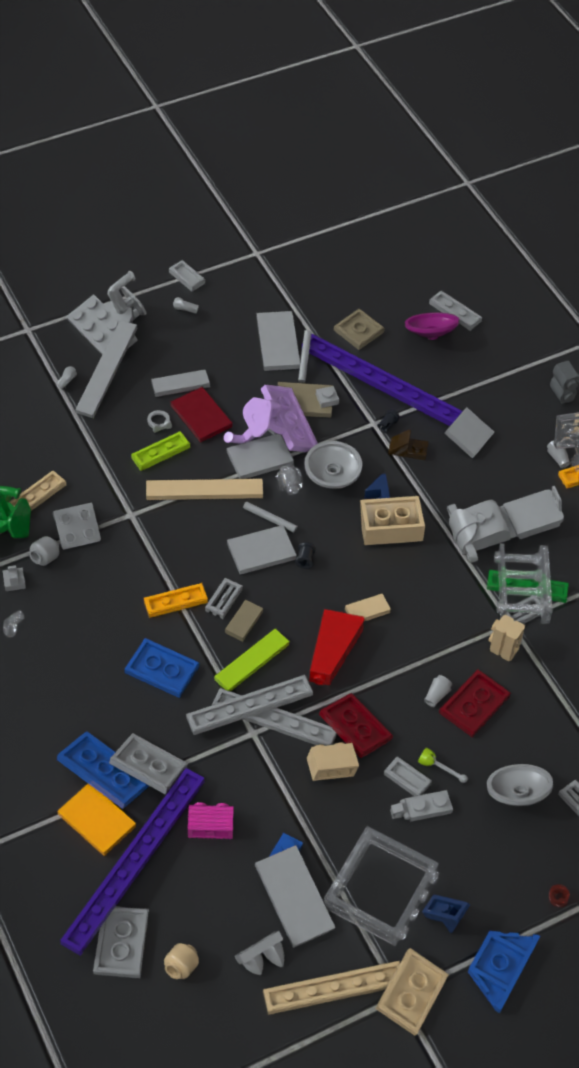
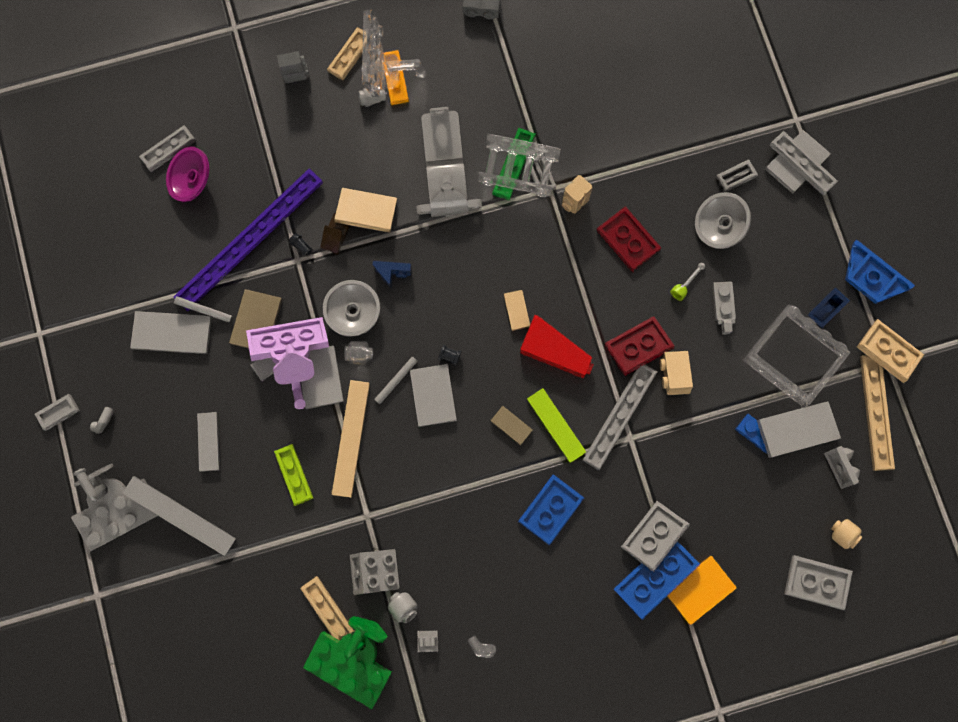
camera: 75 degrees left, 25 degrees up
(68, 374) = (177, 558): light grey arm -> none
(131, 862) = (751, 562): dark purple plate -> none
(157, 427) = (263, 474): light grey piece -> none
(175, 600) = (477, 486): light orange tile -> none
(201, 414) = (254, 427): dark red tile -> none
(210, 821) = (719, 489): dark pink brick -> none
(216, 610) = (495, 449): light grey tile -> none
(249, 704) = (607, 436): light grey tile -> none
(327, 397) = (261, 297): light grey plate -> none
(359, 329) = (172, 248): dark tan tile -> none
(392, 520) = (427, 266): tan slope -> none
(407, 777) = (694, 312): light grey tile -> none
(438, 464) = (365, 210): none -> tan tile
(439, 689) = (615, 267): light grey cone -> none
(469, 432) = (332, 172): light grey tile -> none
(562, 901) = (812, 215): clear red bush -> none

